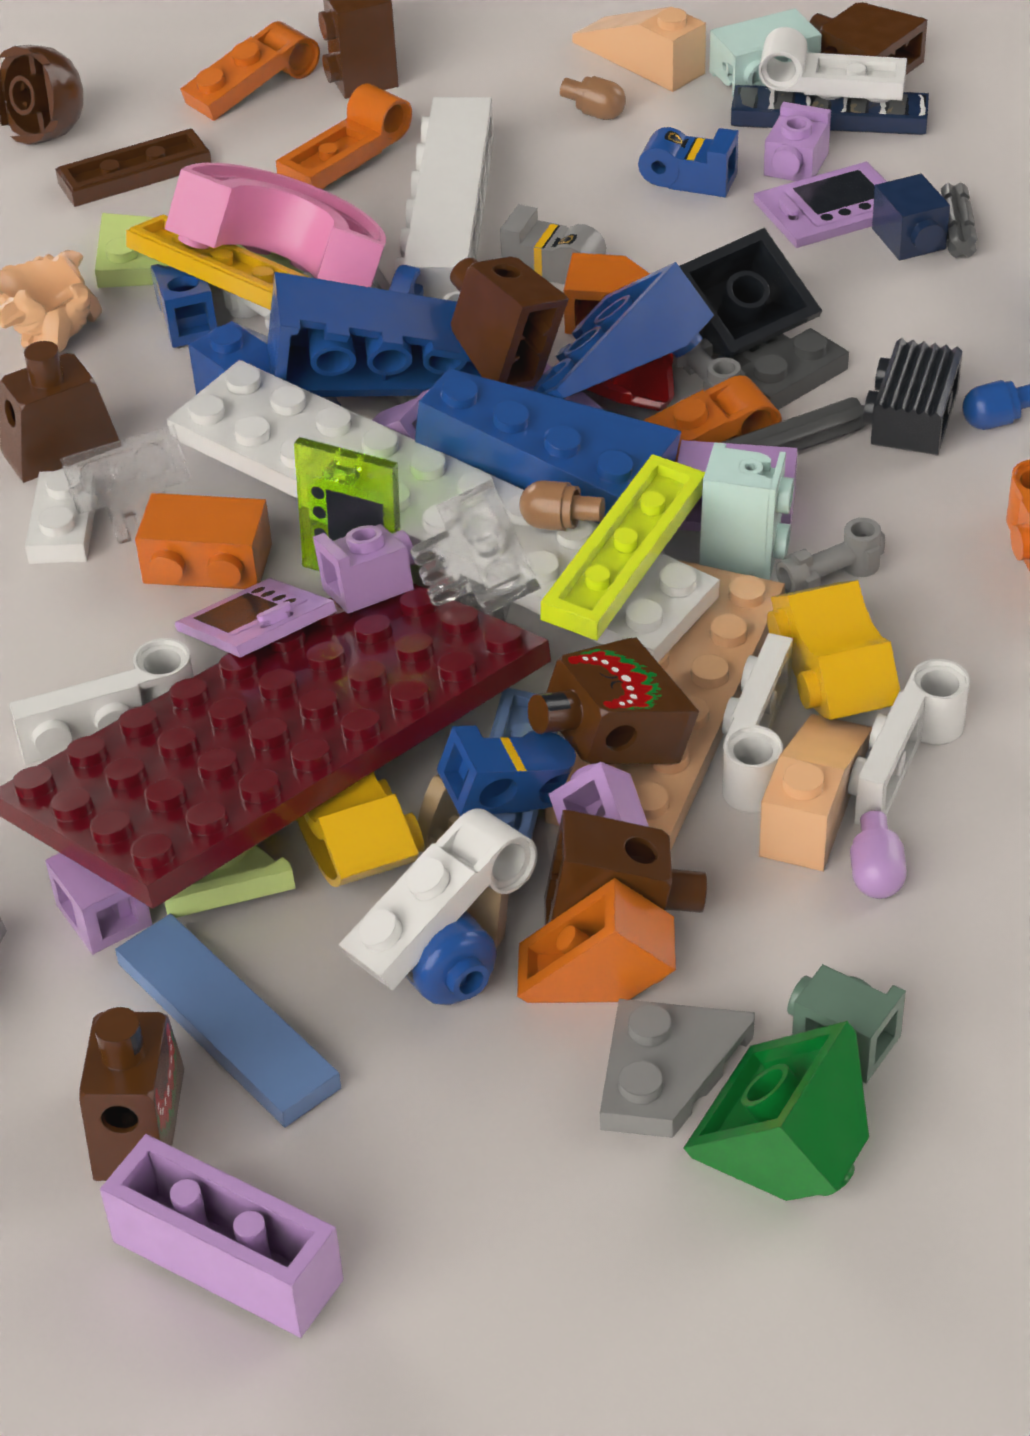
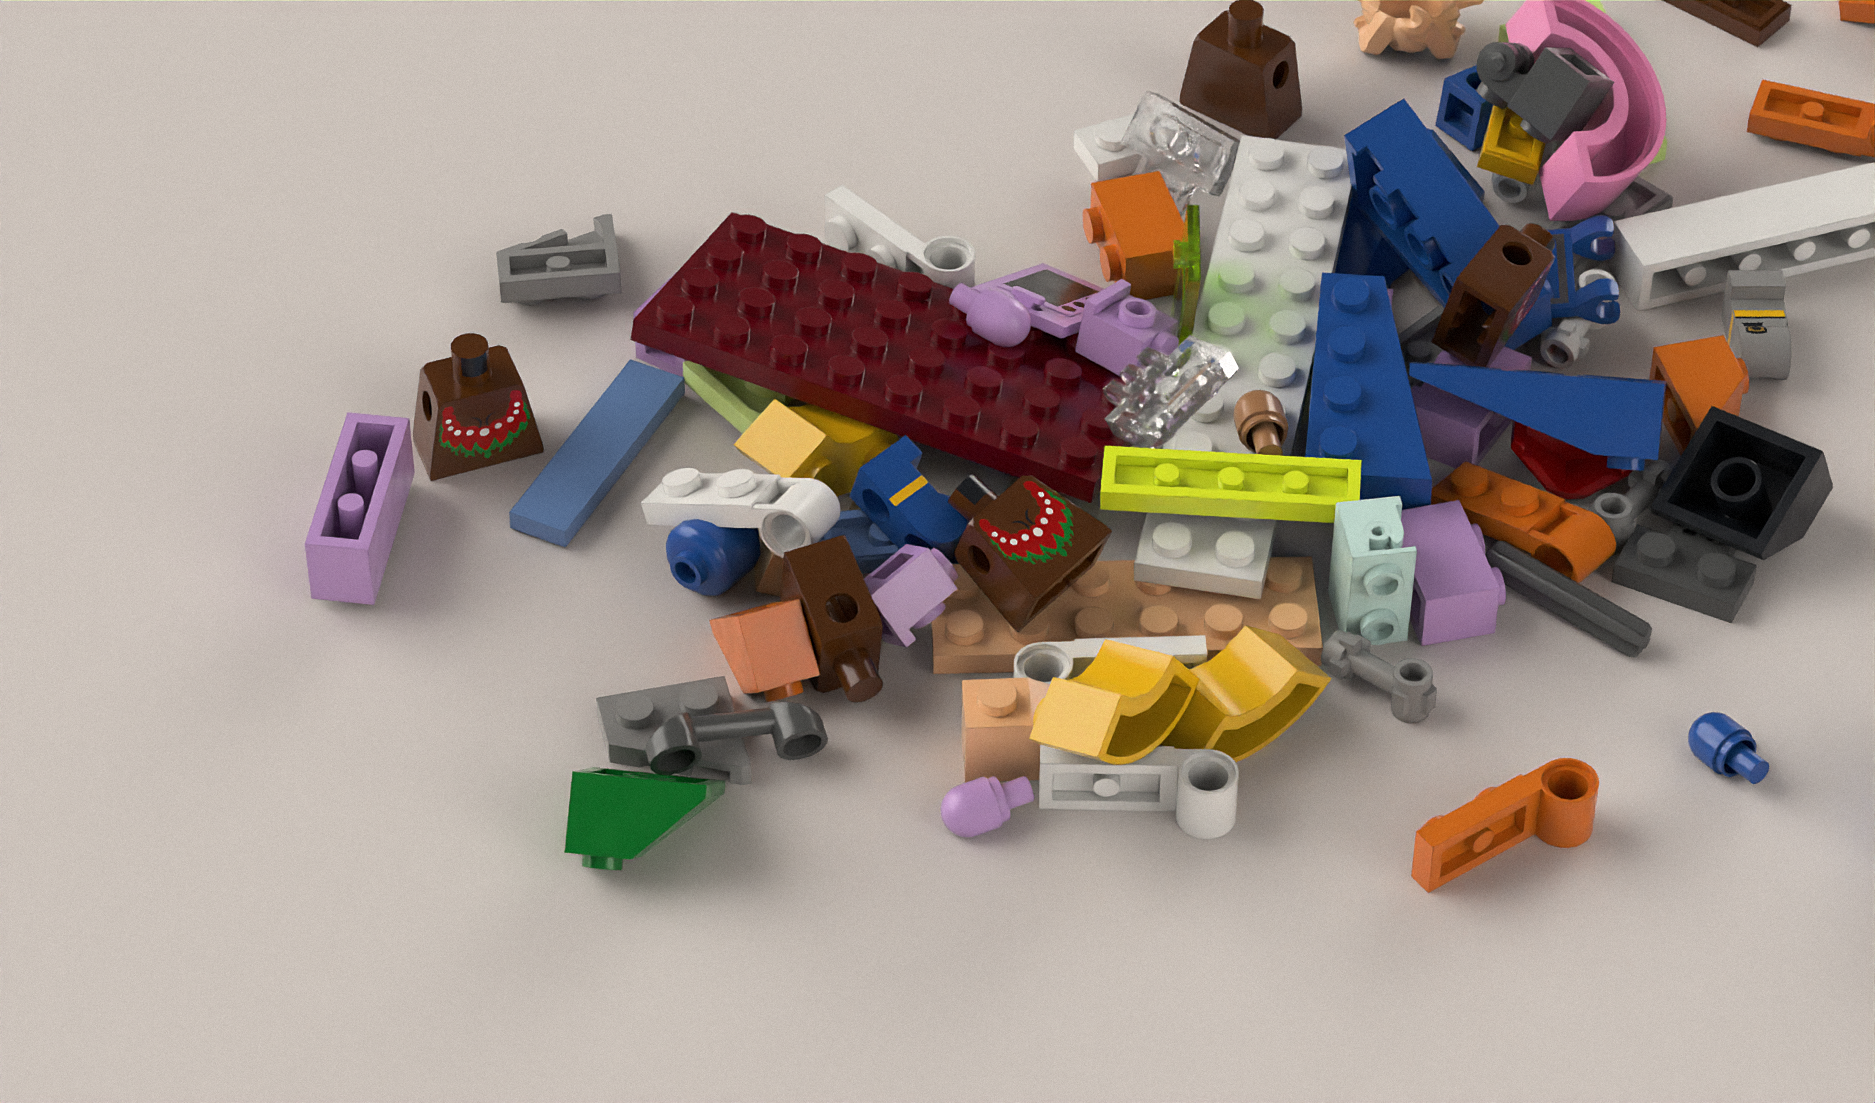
camera: 65 degrees right, 0 degrees up
(277, 227) = (1550, 96): none -> dark grey brick
(289, 639) = (993, 314): none -> lavender cylinder
(718, 1050) = (793, 726): none -> dark grey bar
(837, 998) = (764, 824): sand green brick -> none
(867, 699) = (1116, 706): none -> yellow brick
(913, 396) = (1680, 673): black brick -> none

